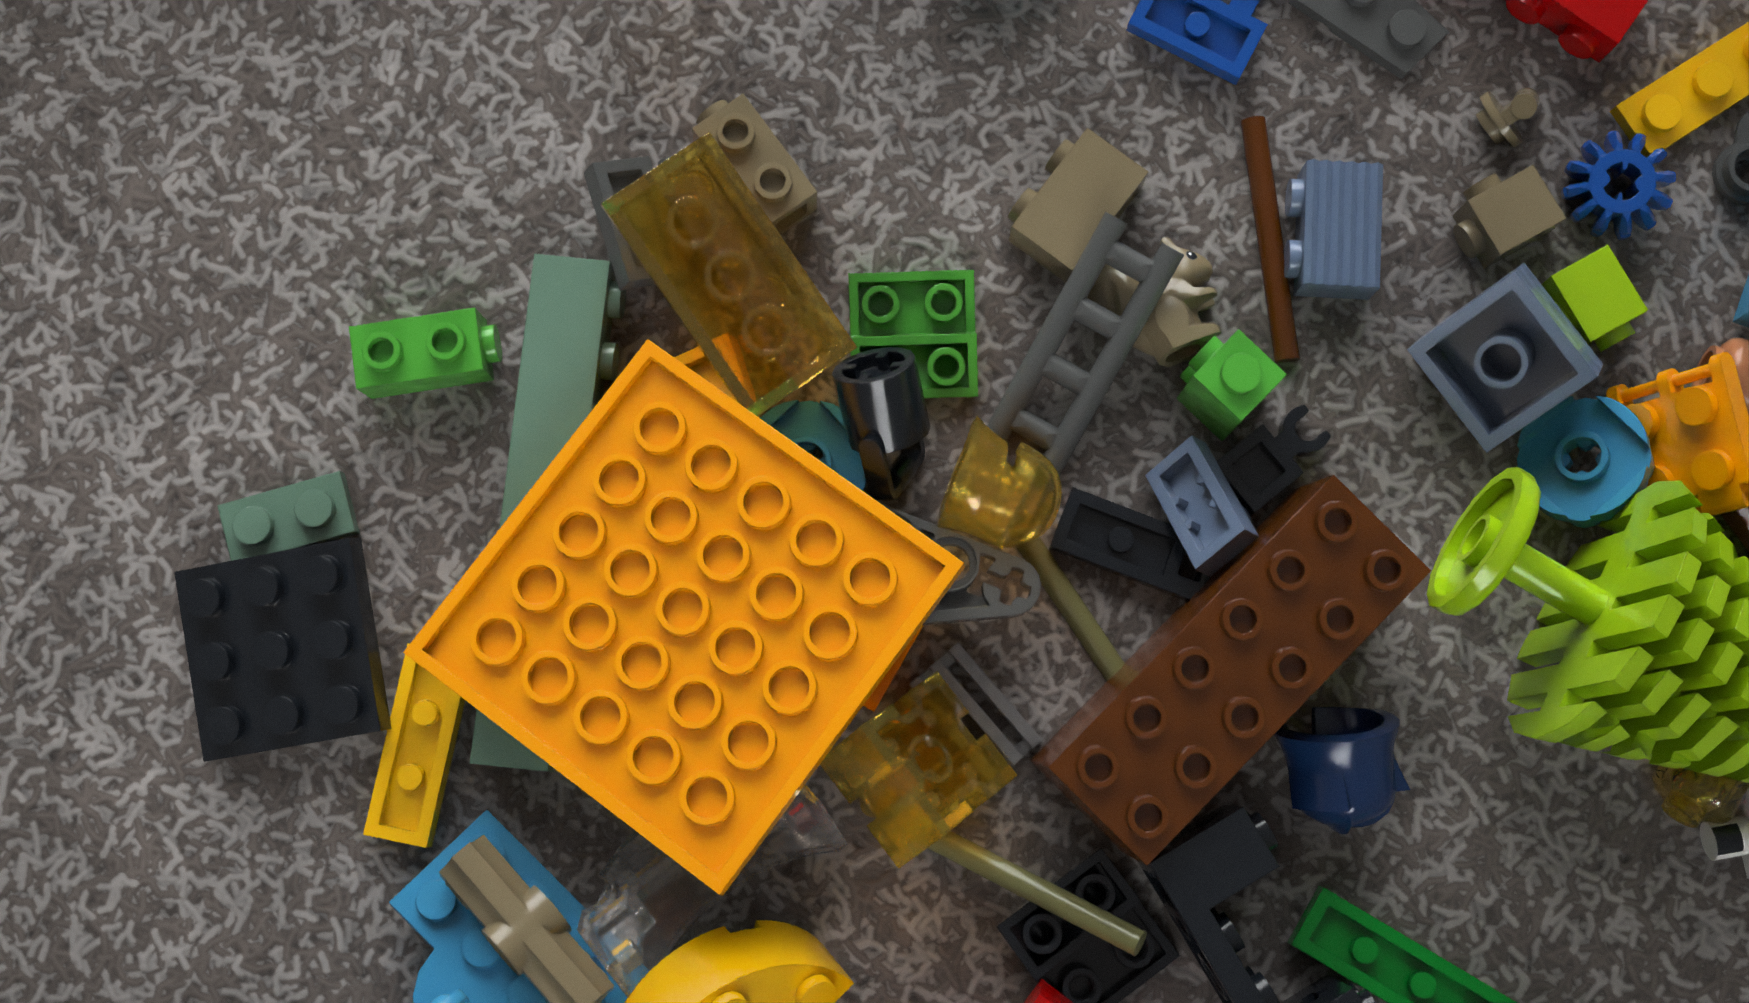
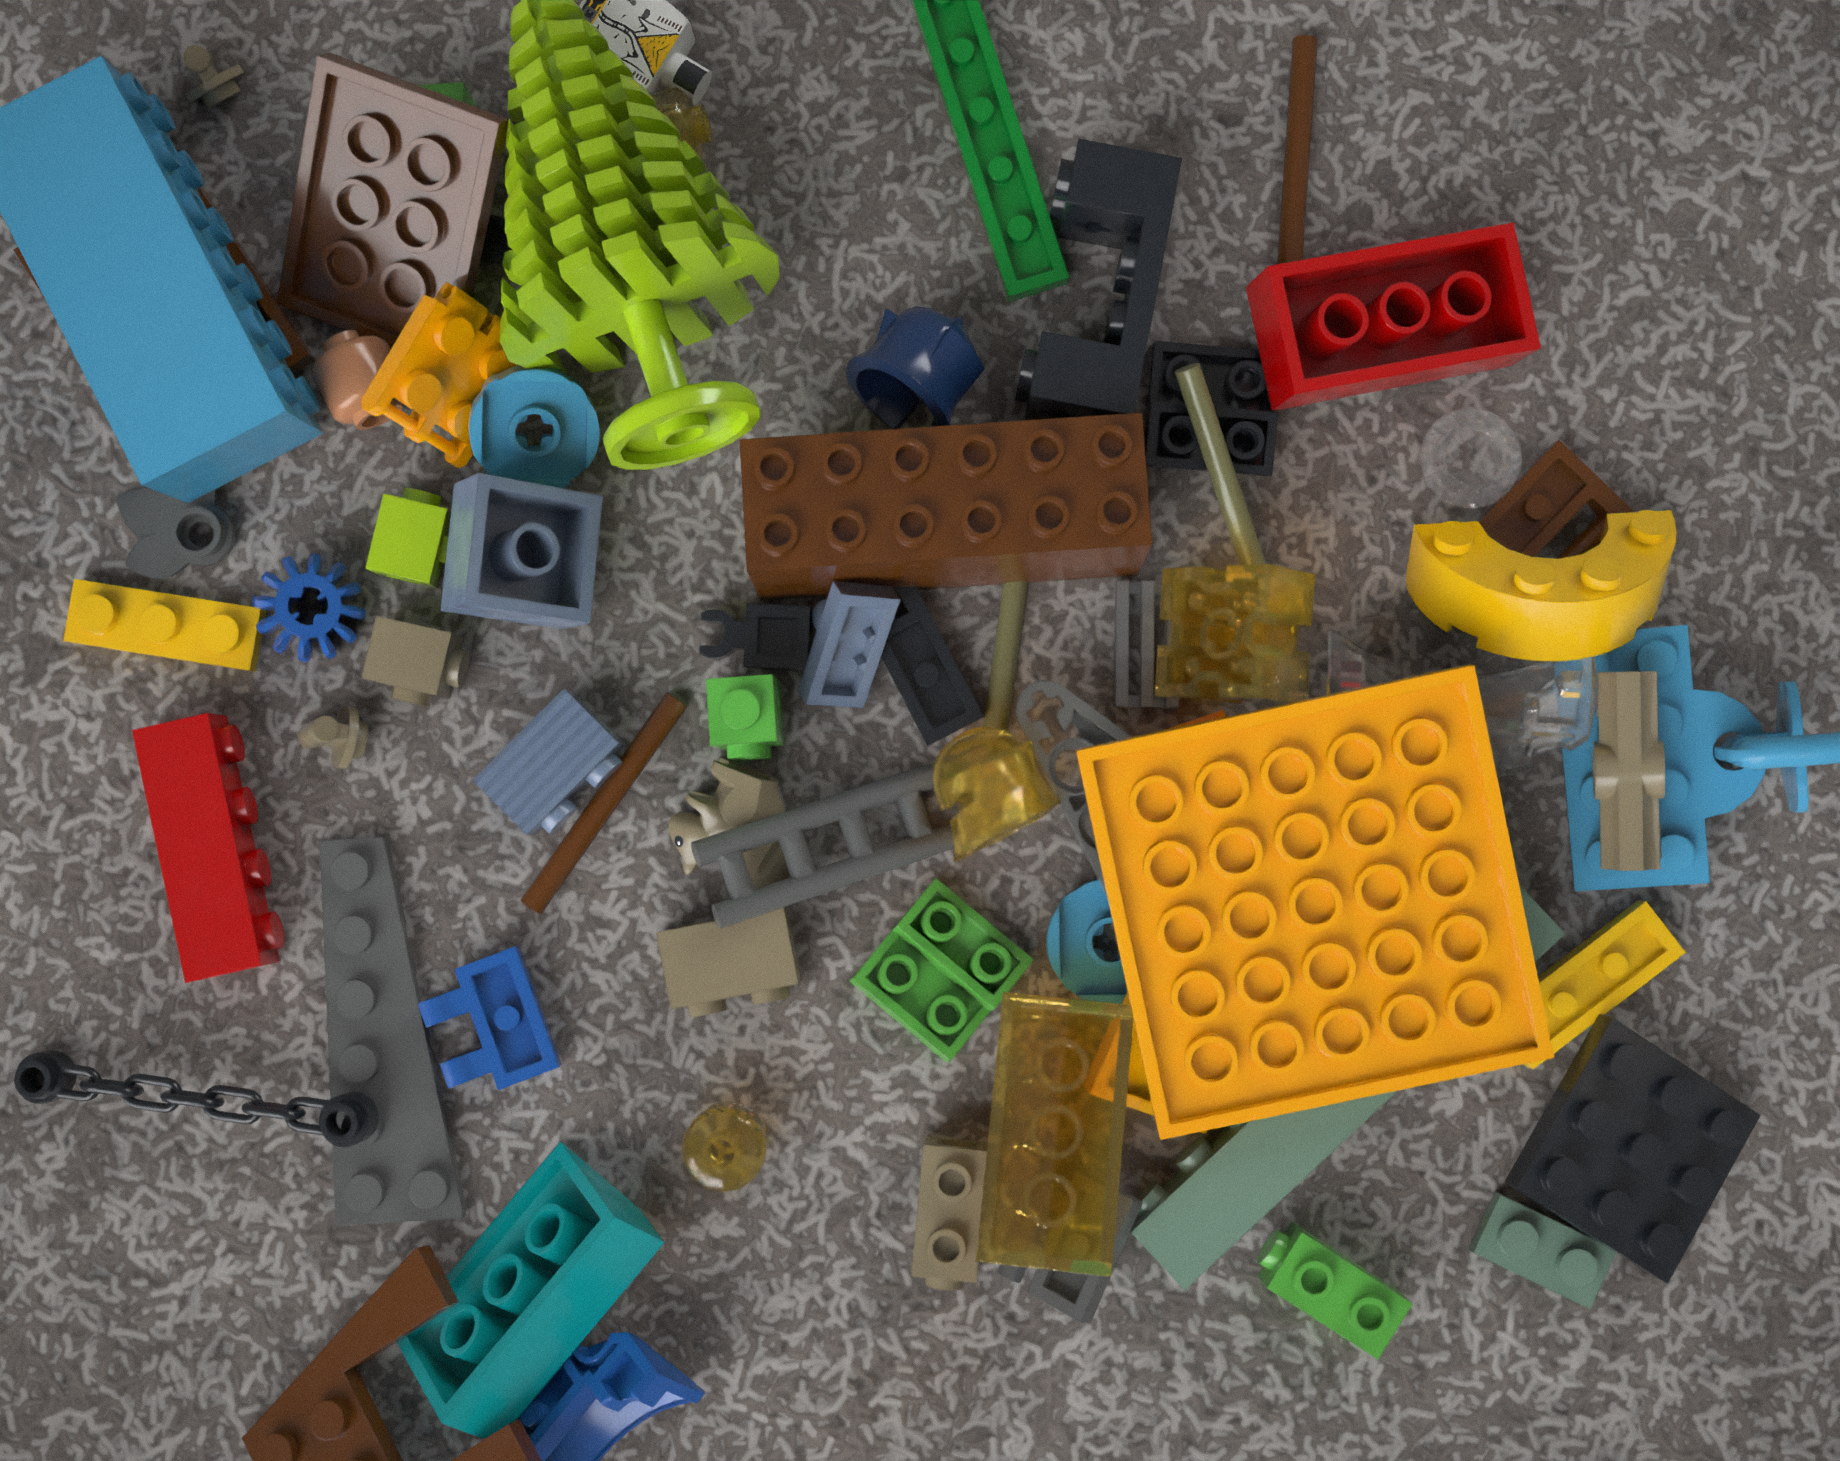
camera: 140 degrees left, 5 degrees up
(883, 414) = (1029, 921): black piece -> none
(957, 70) = (748, 1141): none -> clear yellow head

